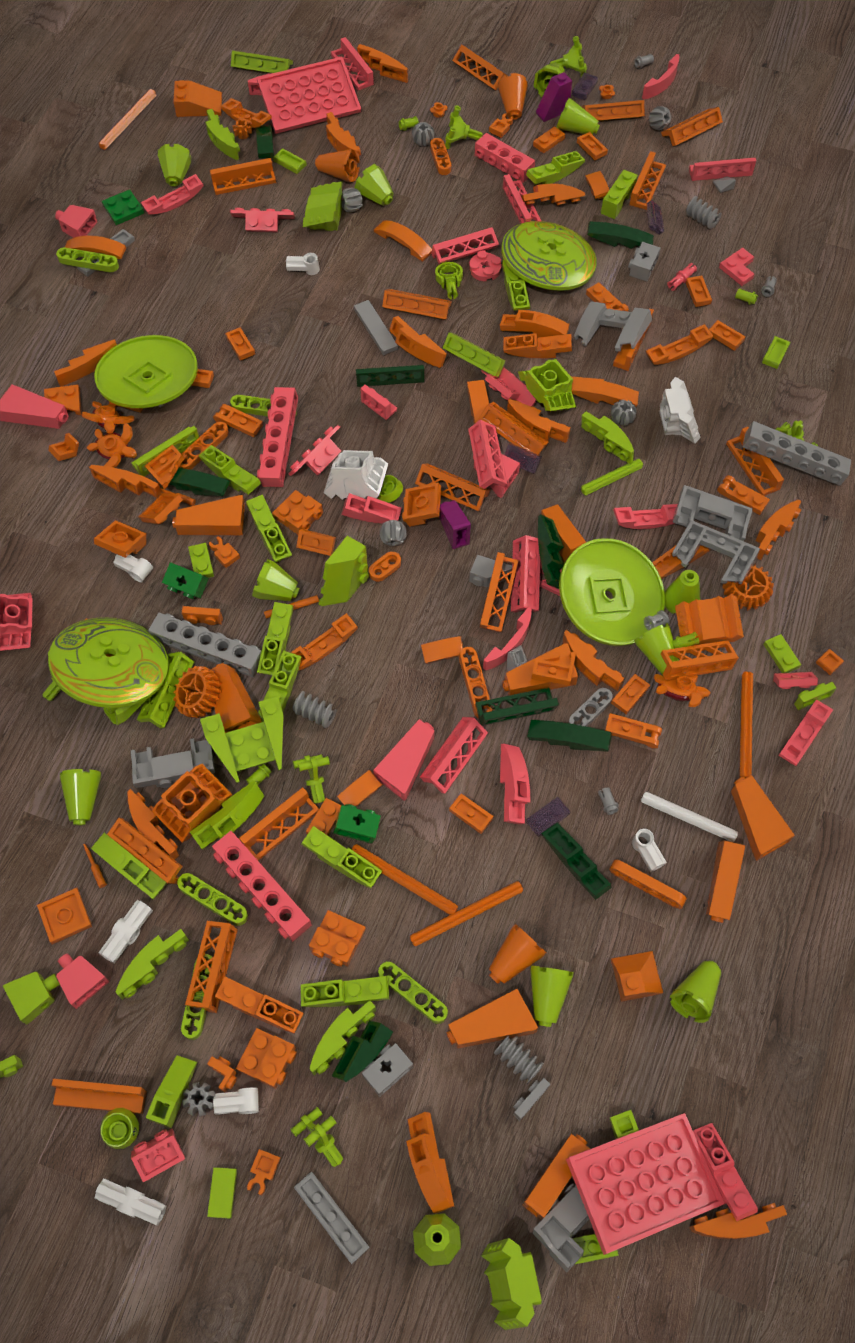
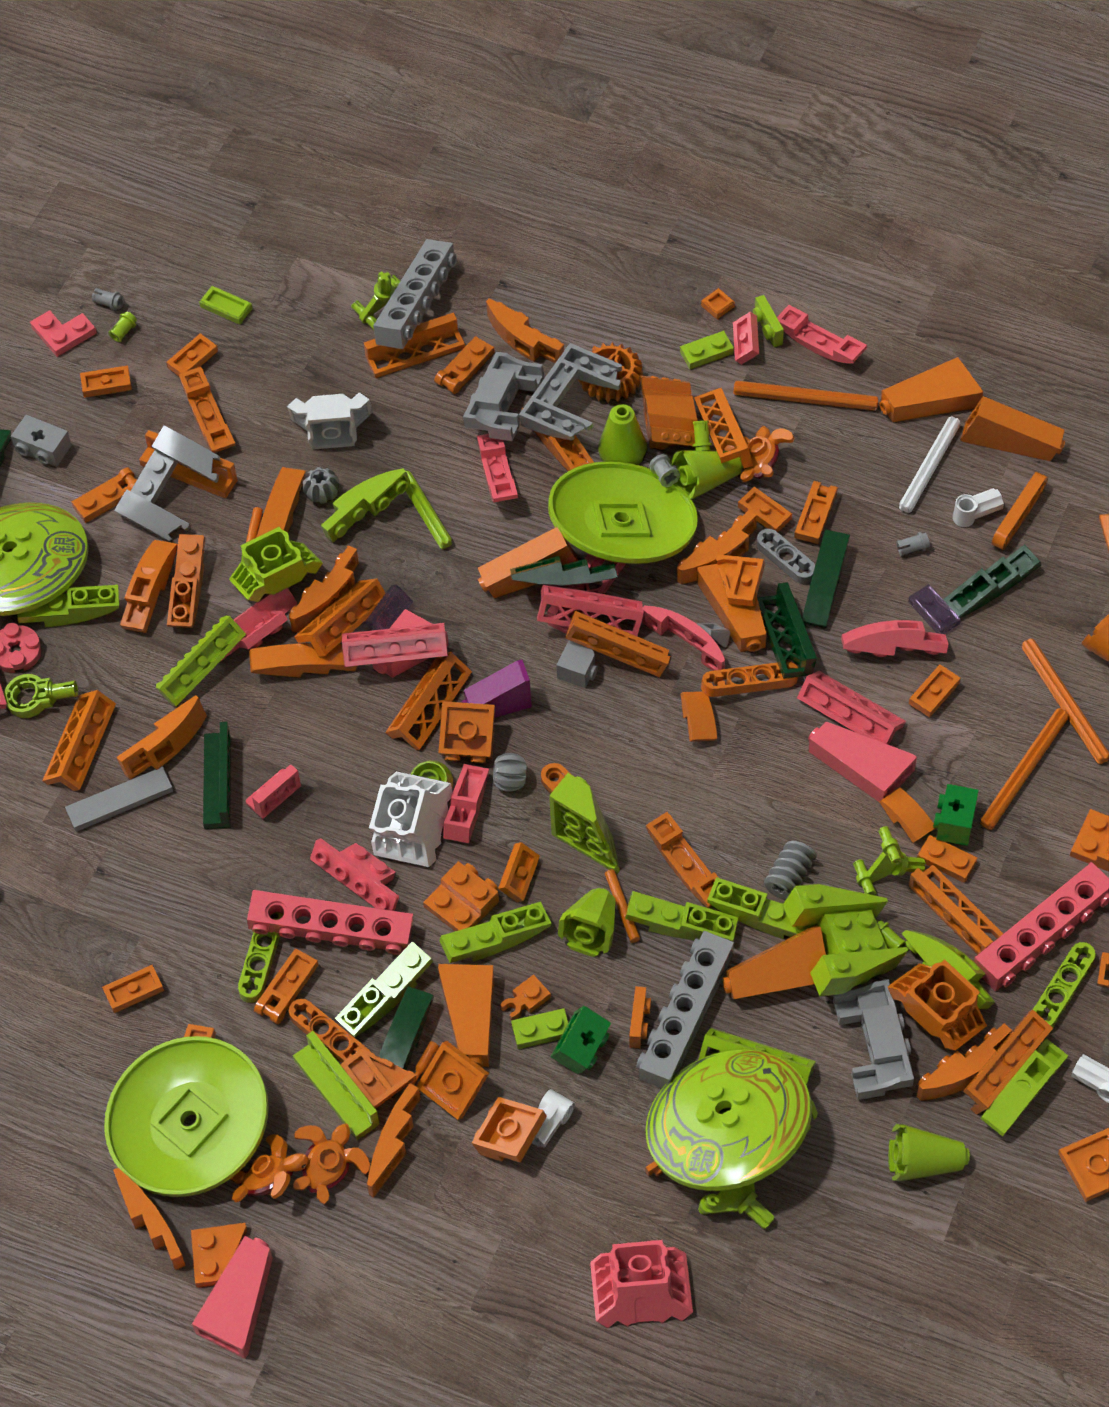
camera: 85 degrees left, 5 degrees down
(65, 449) = (322, 1235): orange bracket -> none
(95, 869) = (1027, 1135): orange piece -> none
(197, 692) = (790, 1019): orange gear -> none
(340, 858) = (1003, 833): lime slope -> none
(681, 276) = (75, 399): coral pin -> none

